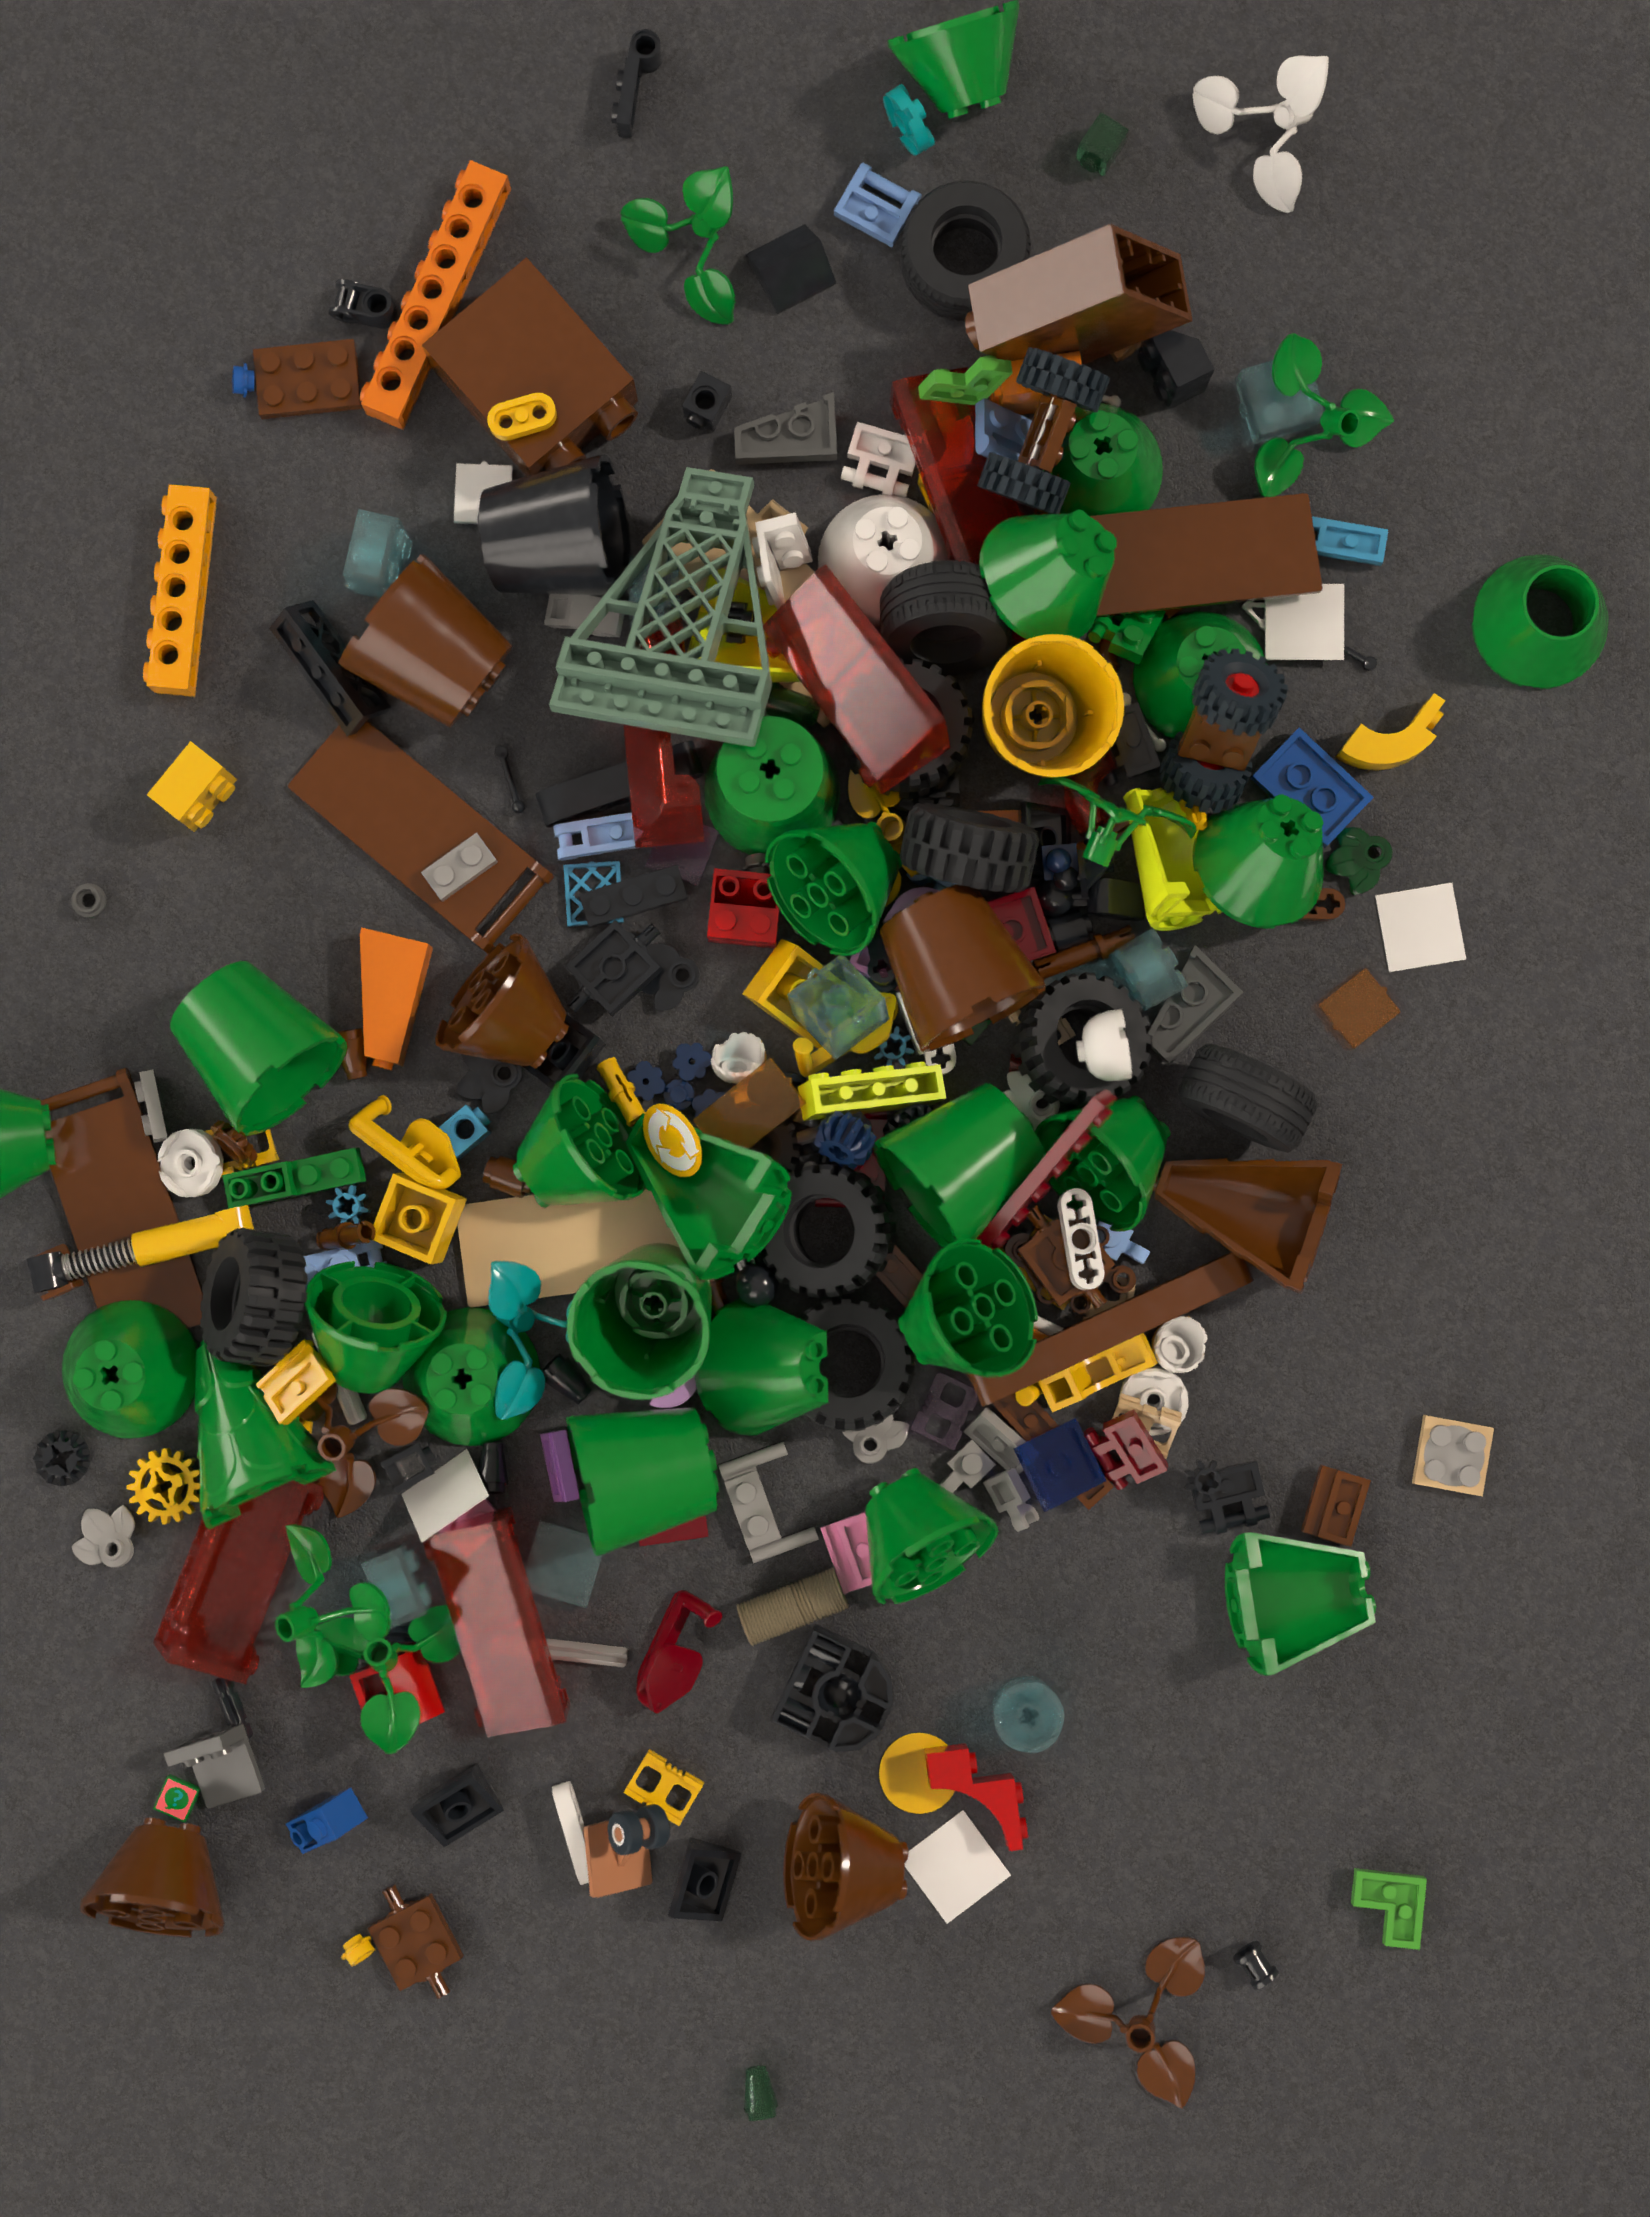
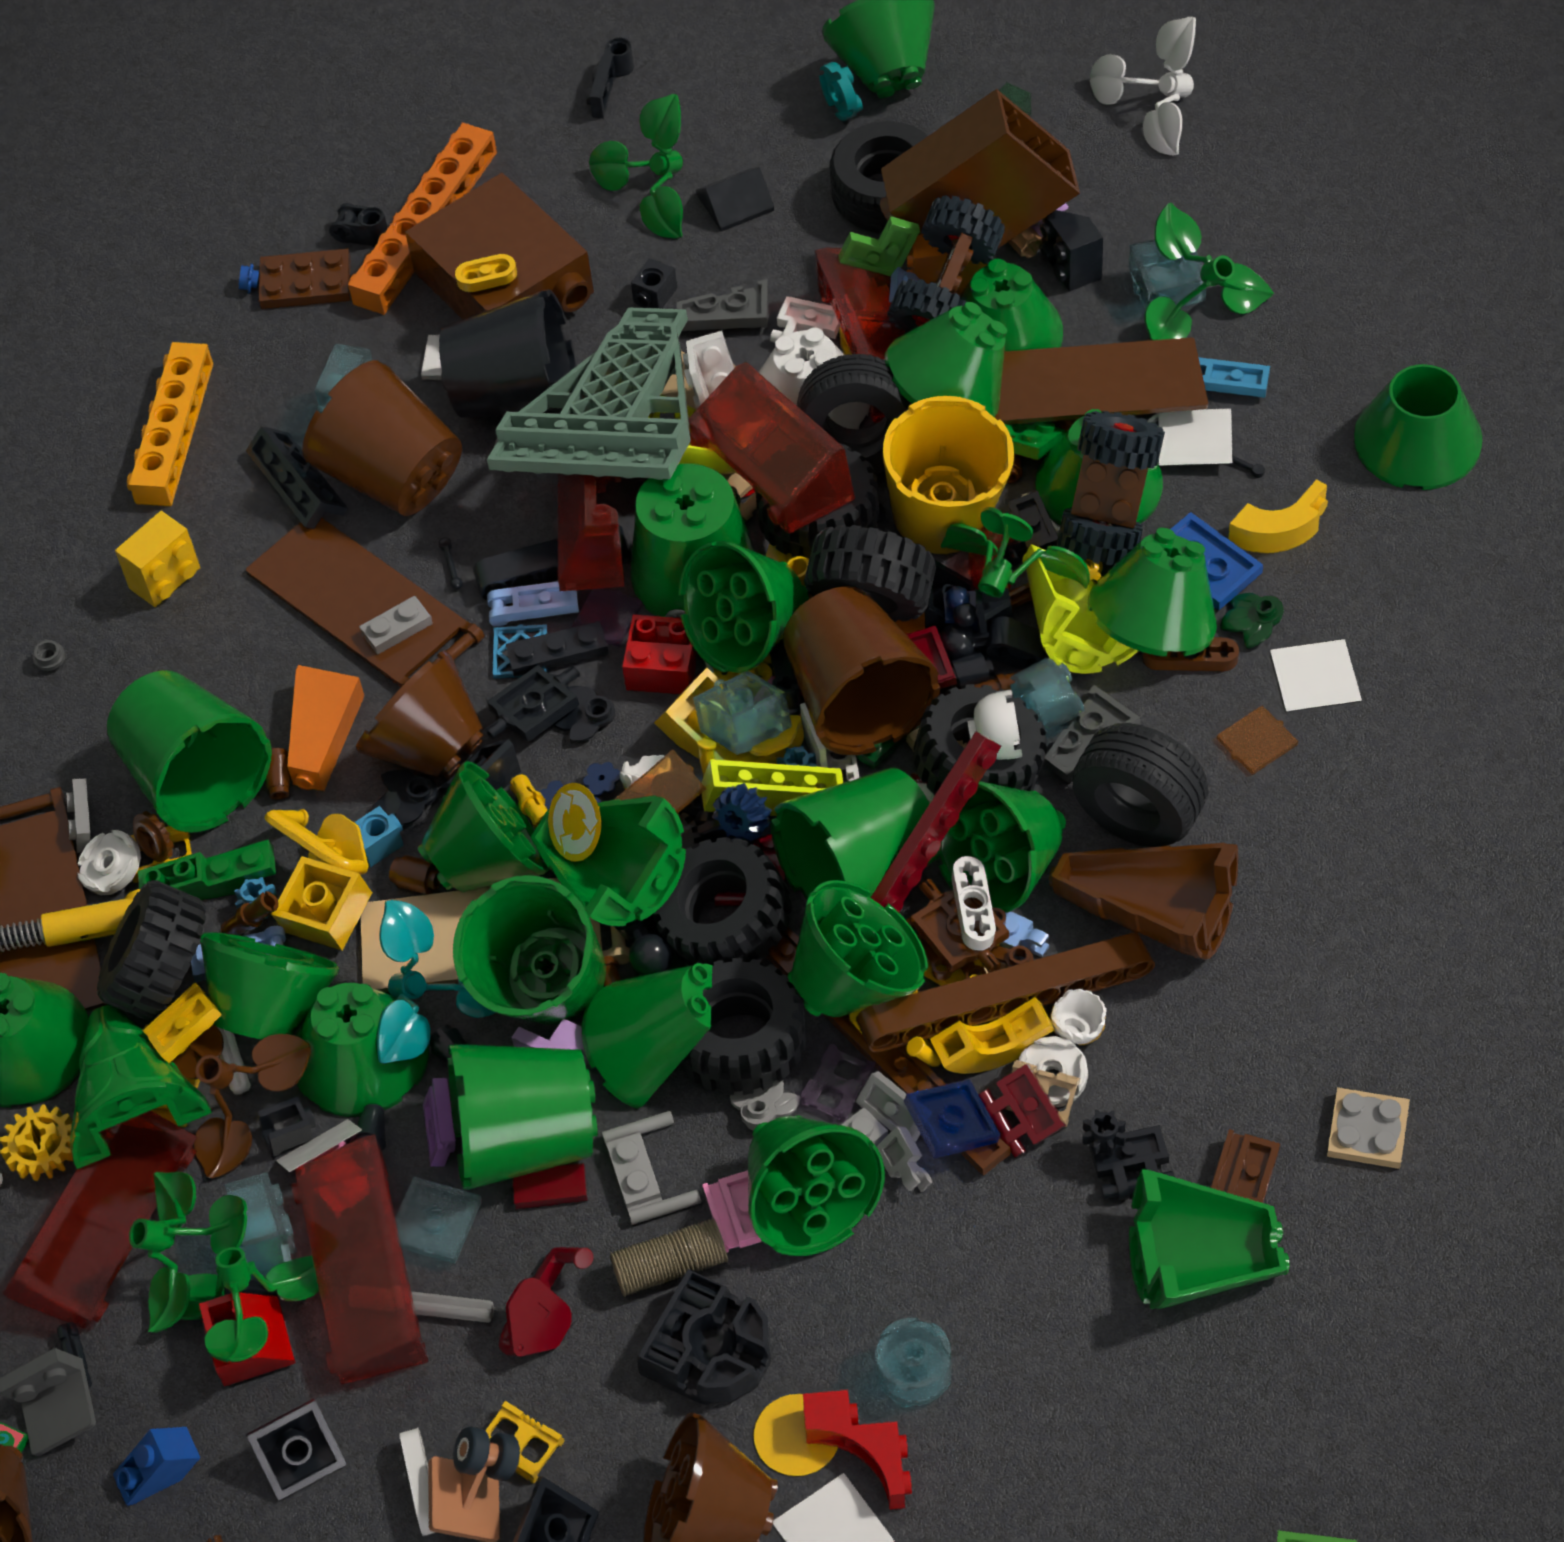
camera: 10 degrees right, 30 degrees down
(872, 213) = (803, 153): medium blue plate -> none

